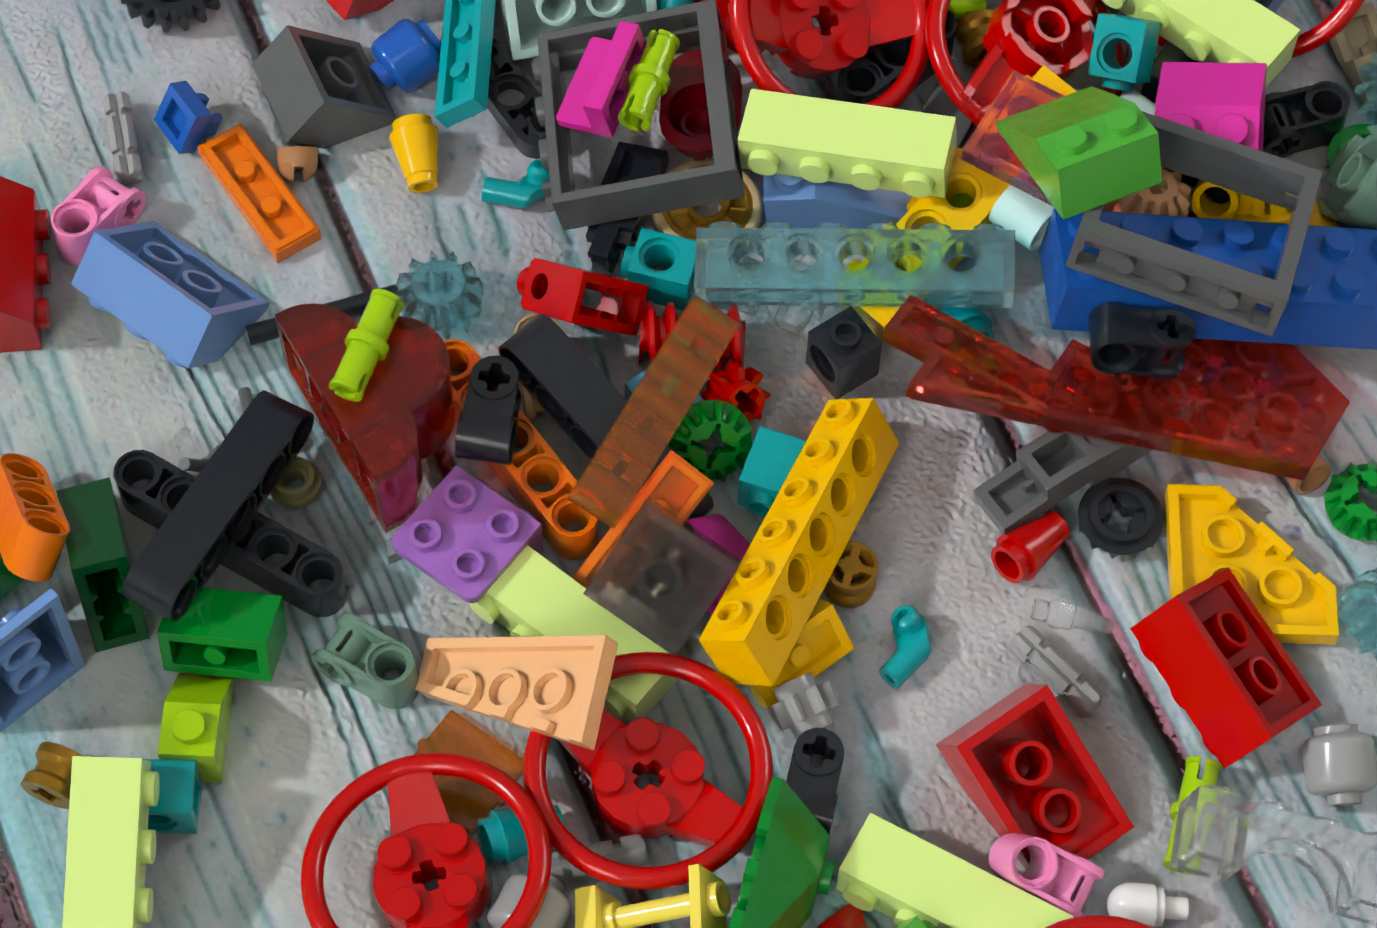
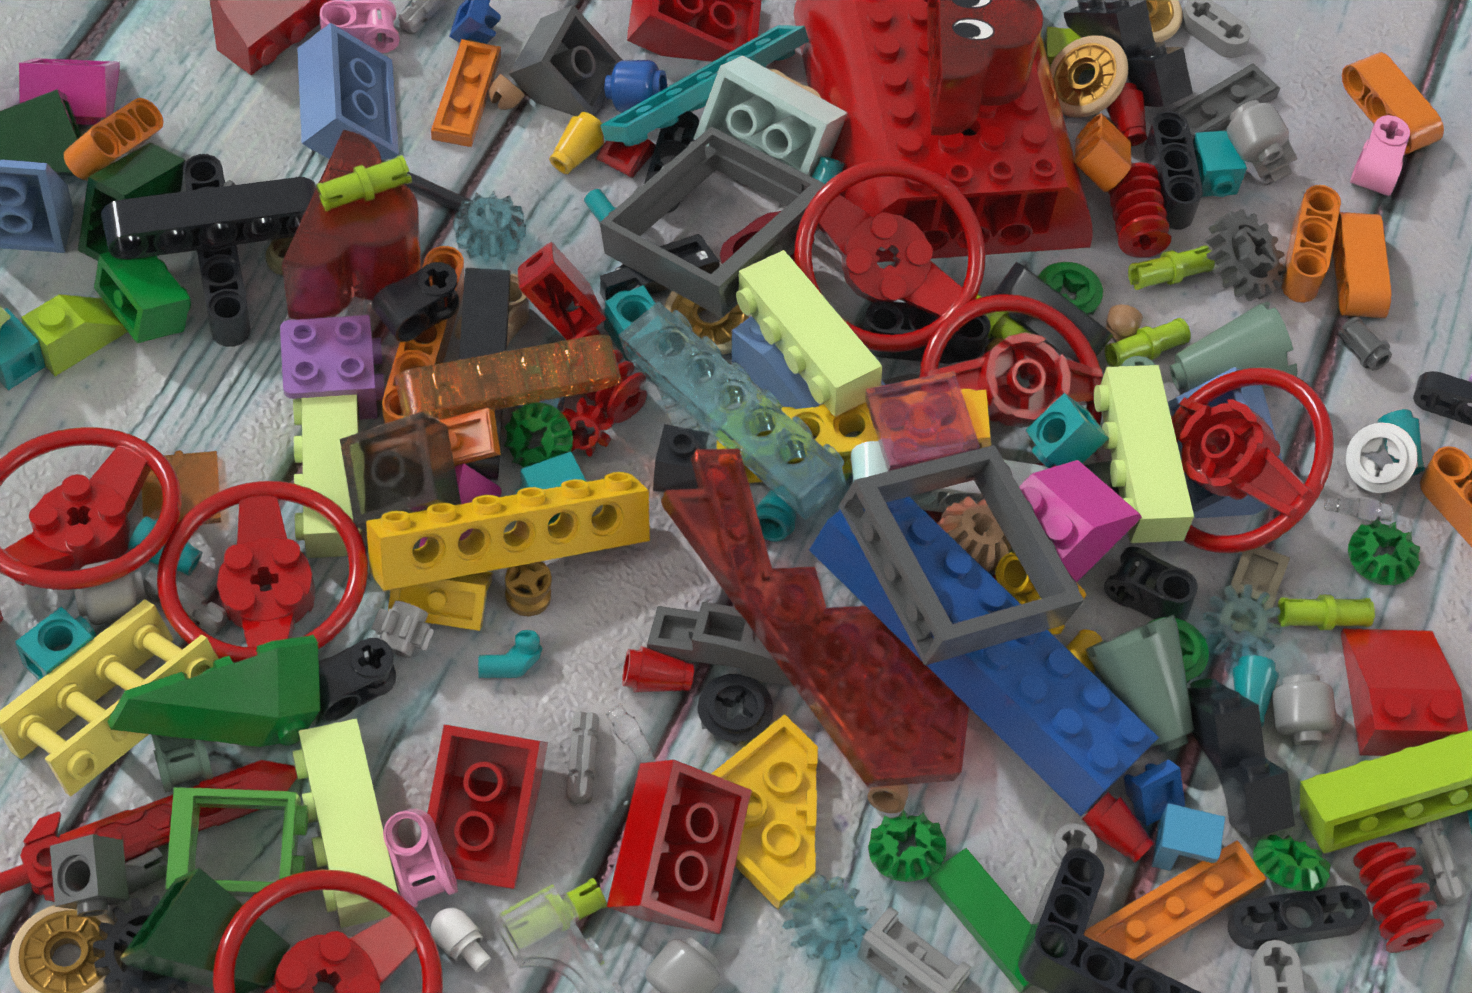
camera: 40 degrees right, 5 degrees down
(361, 655) = (201, 383): sand green piece -> none
(463, 135) = (626, 158): none -> red slope
(526, 681) = (253, 460): light nougat wing -> none
(602, 82) = (710, 180): dark pink panel -> none
(649, 80) = (731, 196): lime pin -> none
(1085, 149) = (919, 442): bright green slope -> none
(1135, 342) = (847, 597): black piece -> none

